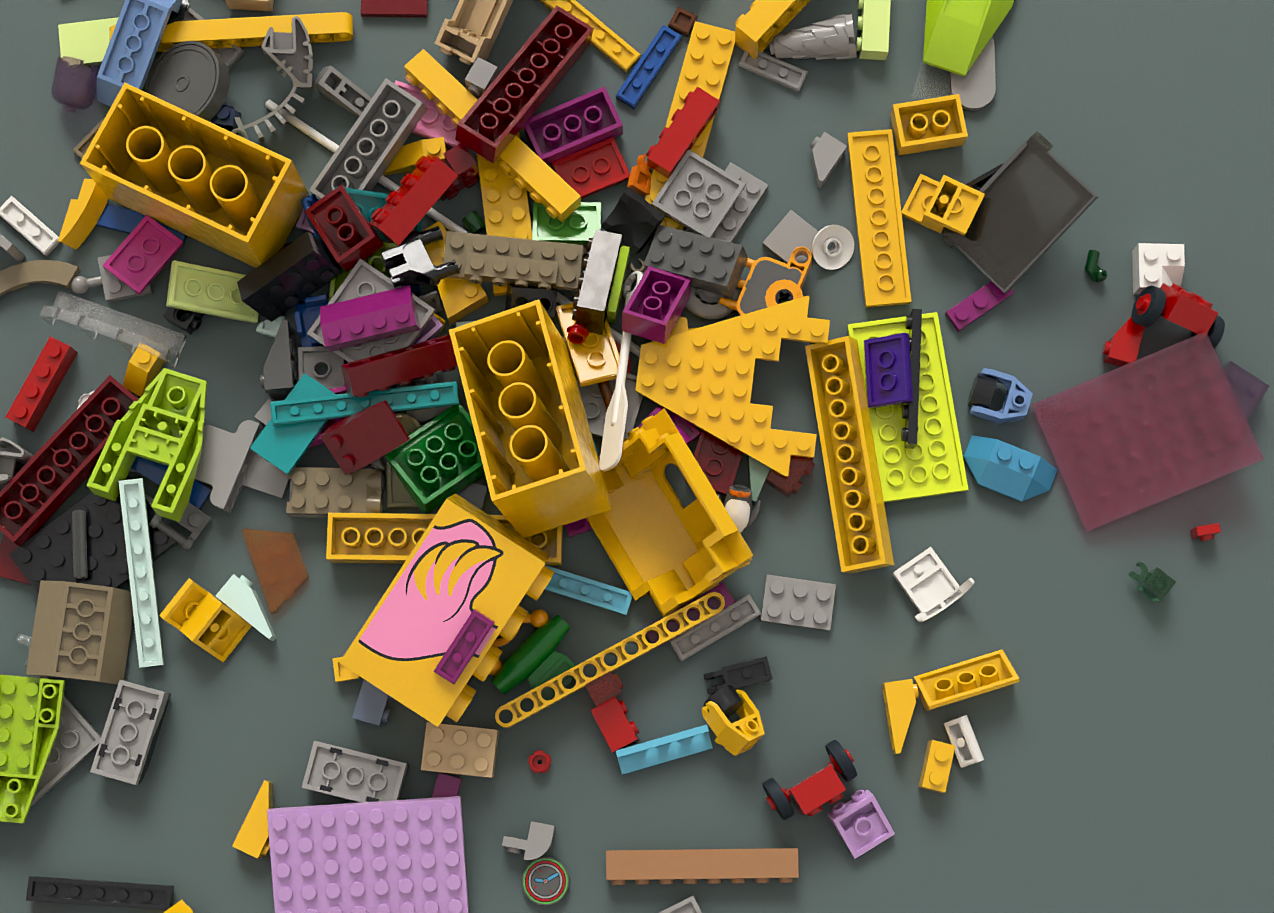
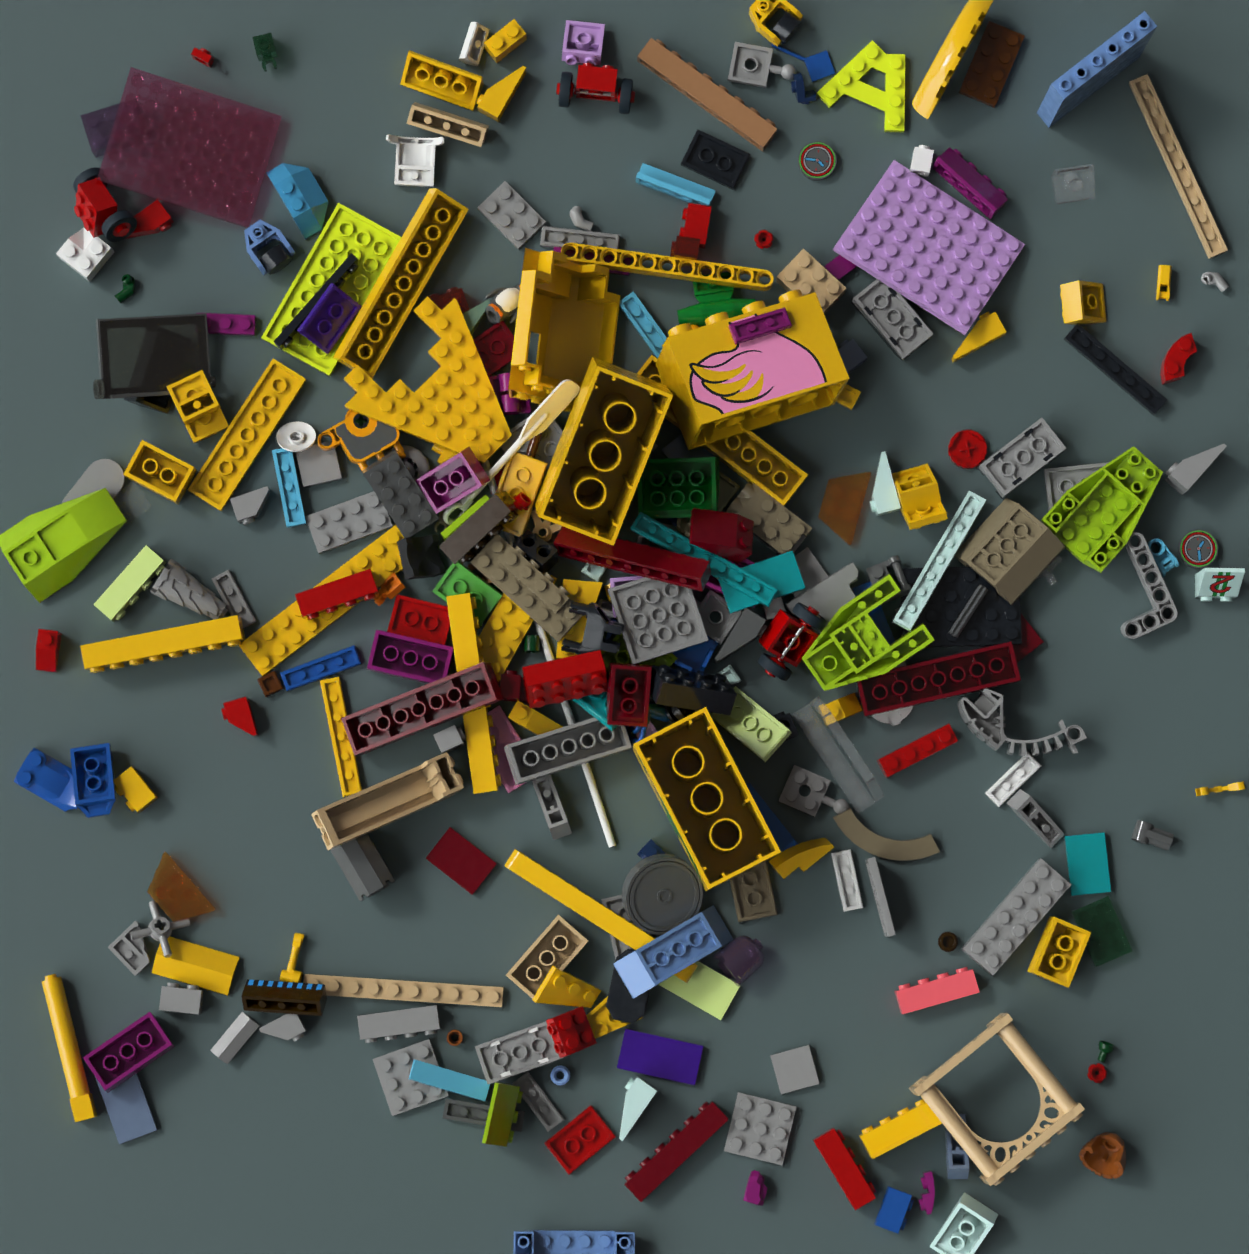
camera: 145 degrees left, 5 degrees up
(143, 254) = (782, 790): dark pink plate -> none
(194, 705) = (967, 449): none -> red tile
(233, 391) = (789, 639): none -> red brick
(294, 57) = (573, 852): light grey piece -> none
(368, 318) = (658, 614): magenta slope -> none
(538, 842) = (805, 187): light grey brick -> none
(645, 806) = (715, 159): none -> black tile
(698, 194) = (361, 540): light grey plate -> none
(732, 646) = (578, 220): none -> light grey arm
(735, 736) = (615, 153): yellow piece -> none
(741, 674) = (587, 196): black hinge -> none
(801, 197) = (289, 488): none -> medium azure plate
(926, 640) = (447, 124): none -> tan brick

